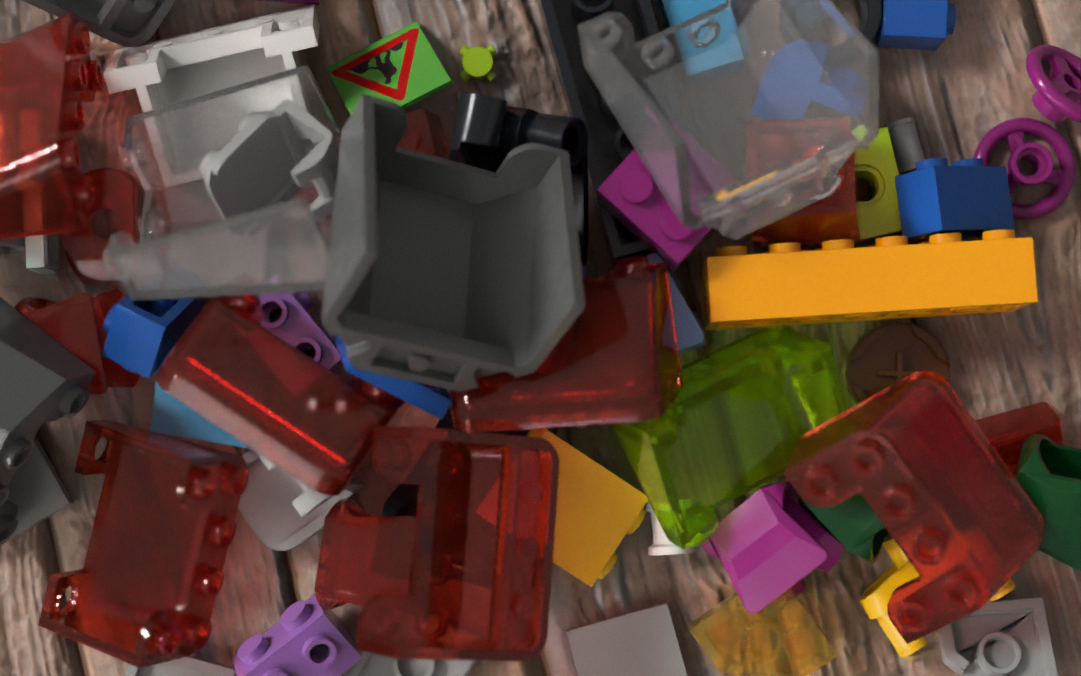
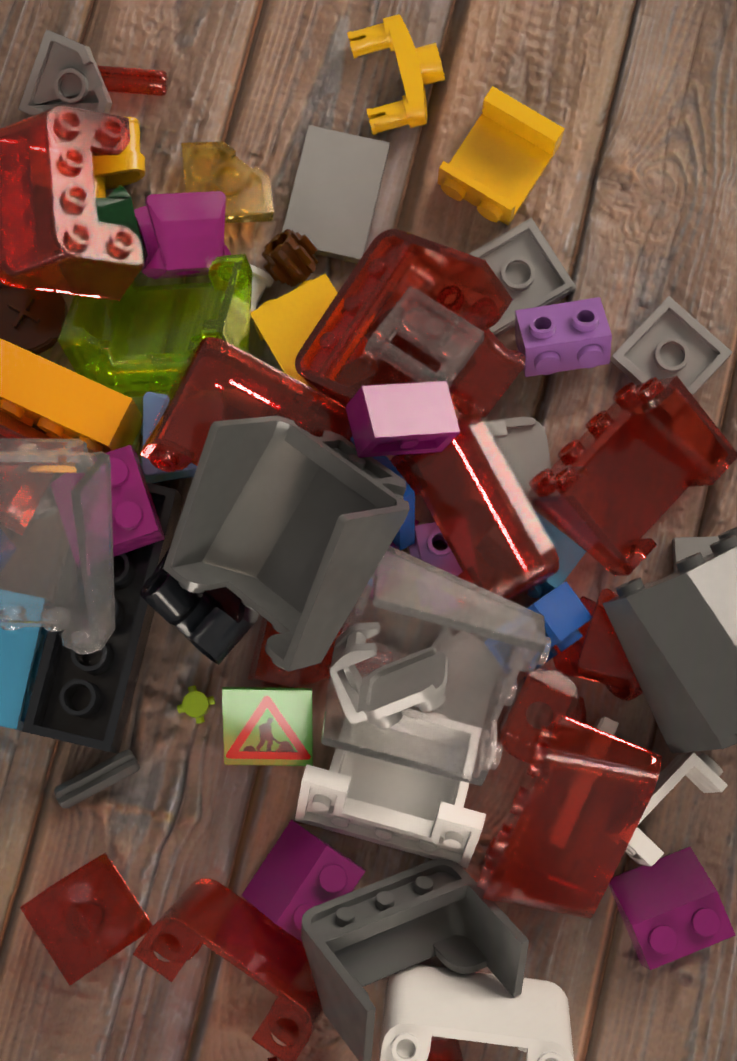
camera: 155 degrees left, 5 degrees down
(395, 436) = (402, 419): none -> panel
(427, 567) = (432, 330): none -> clear plate
(641, 586) = (290, 257): none -> reddish brown gear

